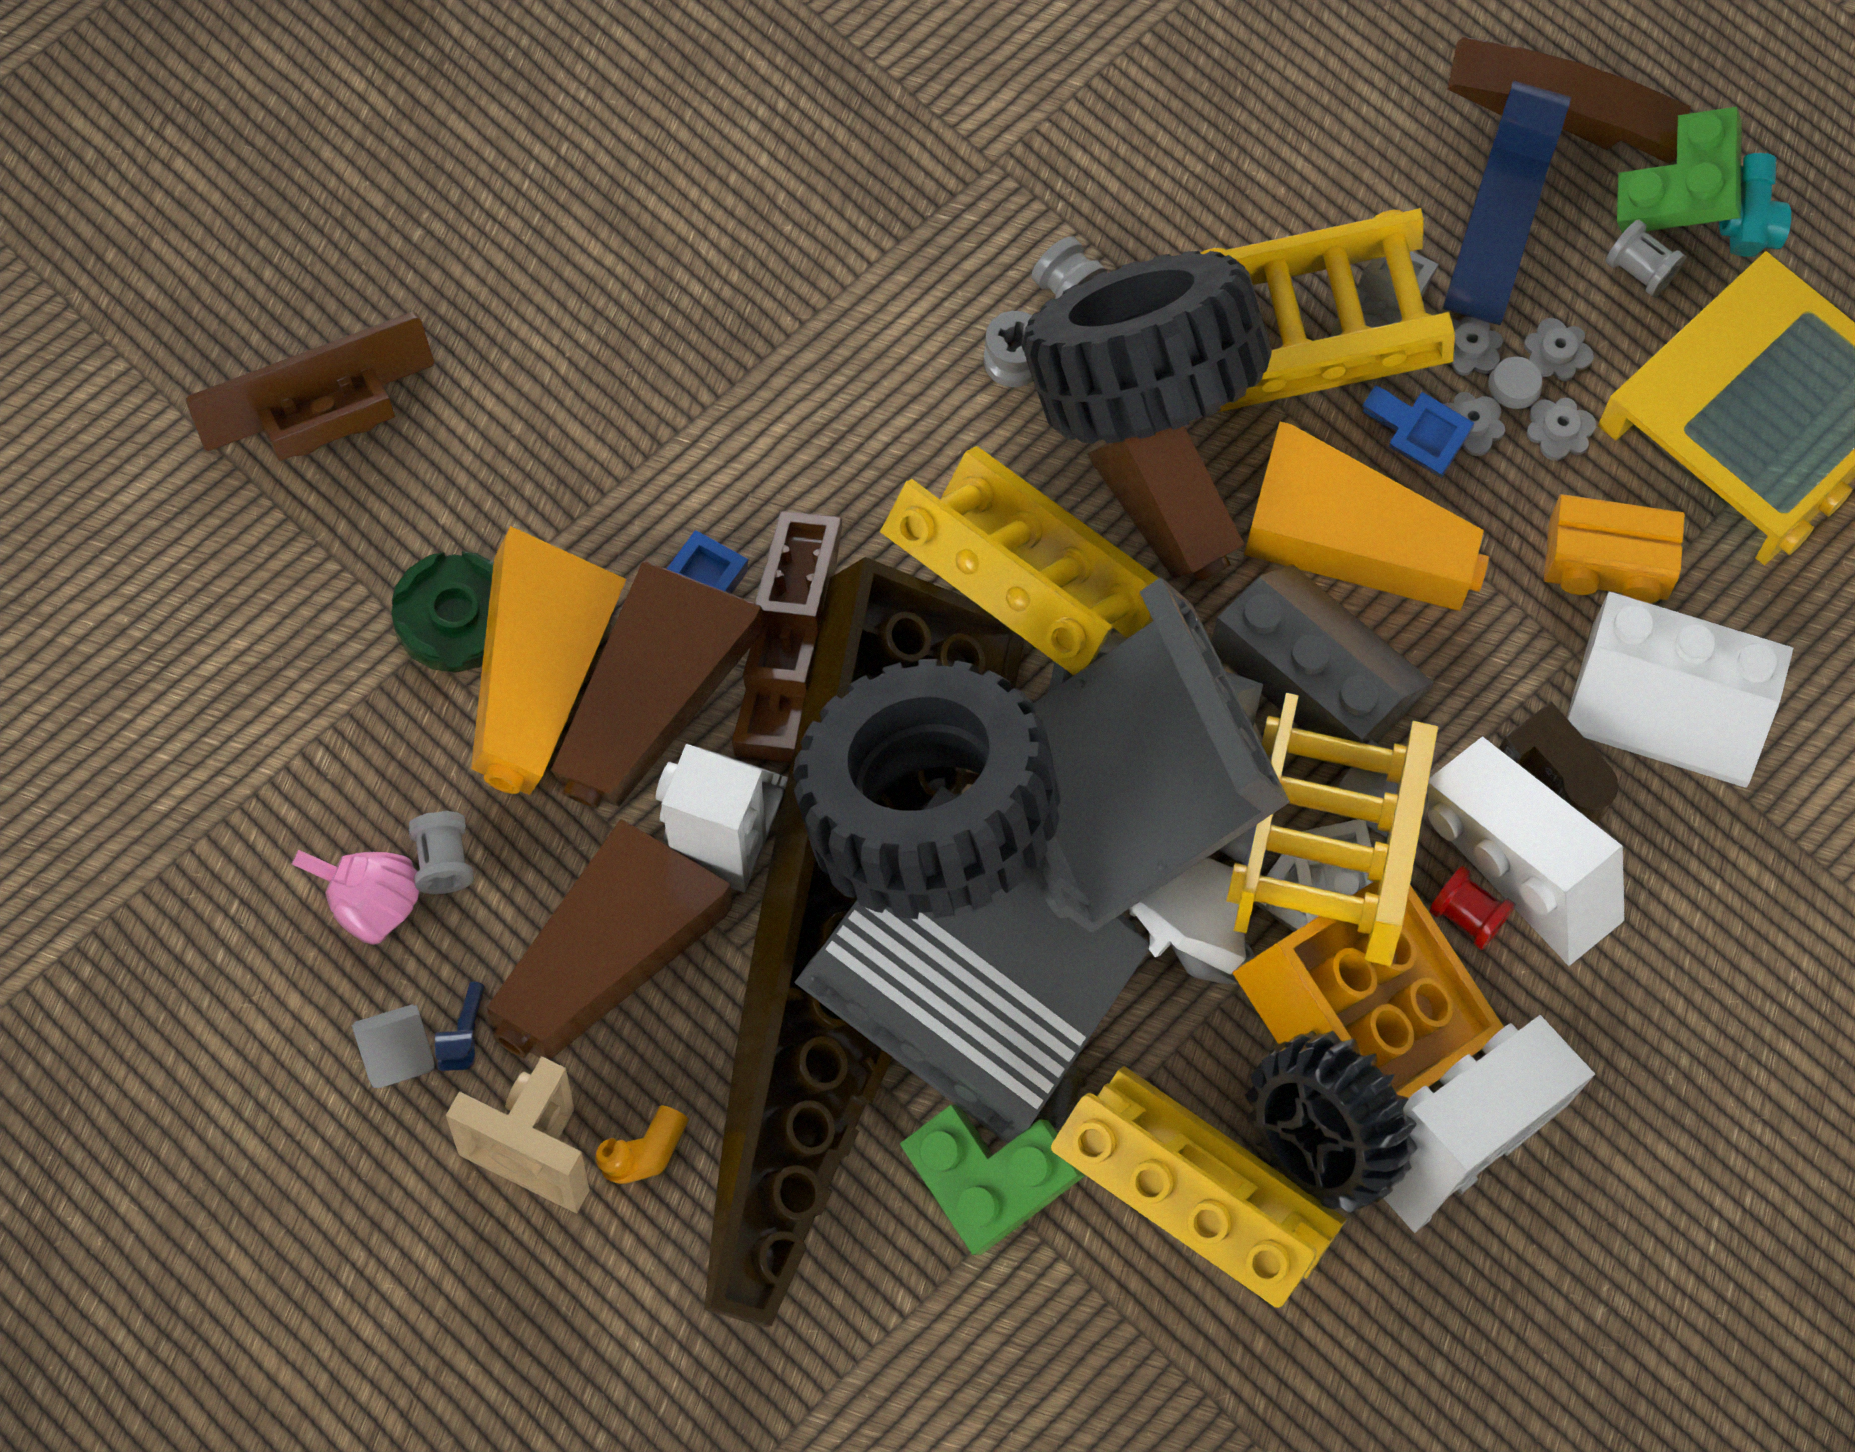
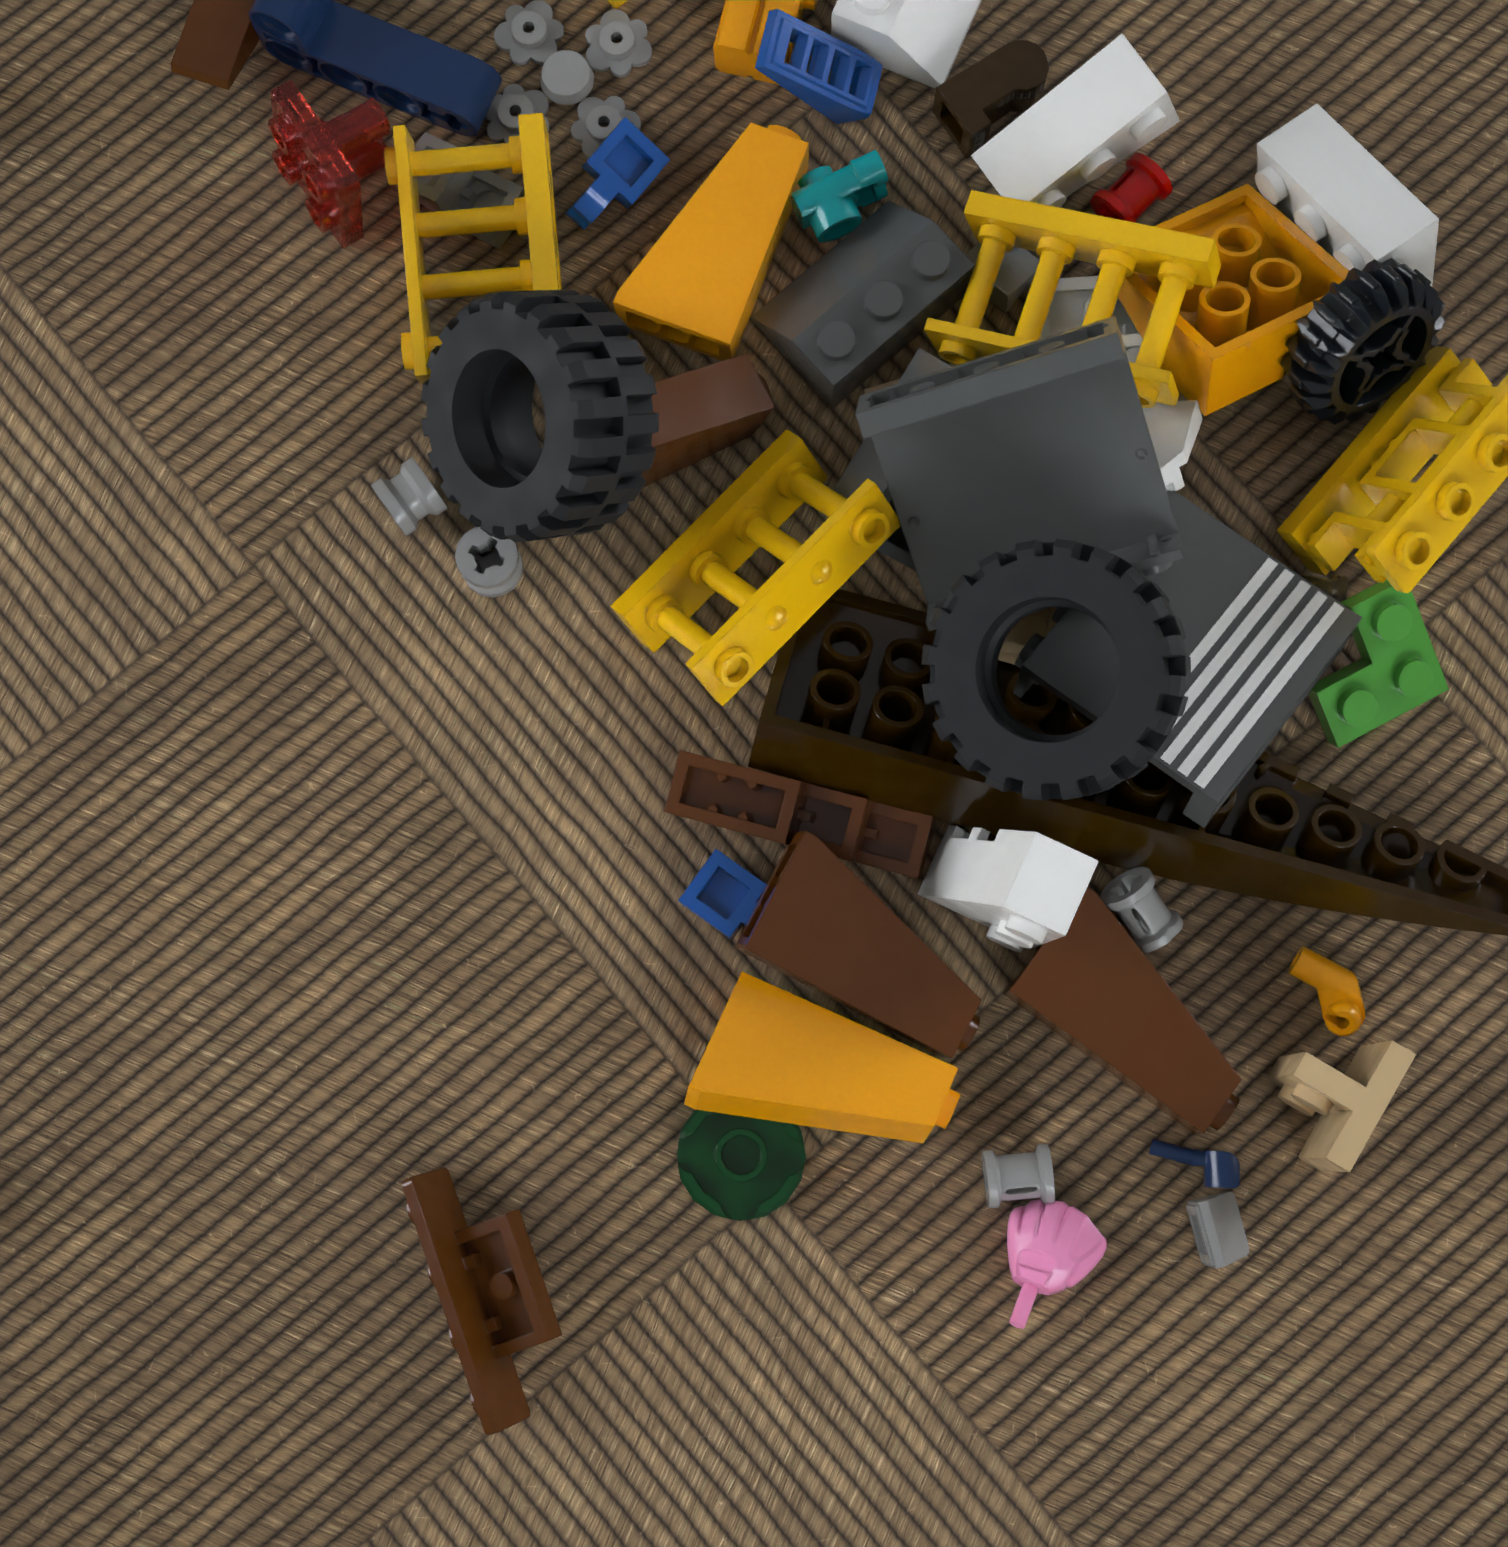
camera: 75 degrees left, 15 degrees up
(712, 949) = (1142, 909): none -> light grey bush
(1386, 167) = (328, 157): none -> clear red plate
(1425, 620) = (831, 198): none -> teal plate
(1544, 640) = (853, 73): none -> blue slope

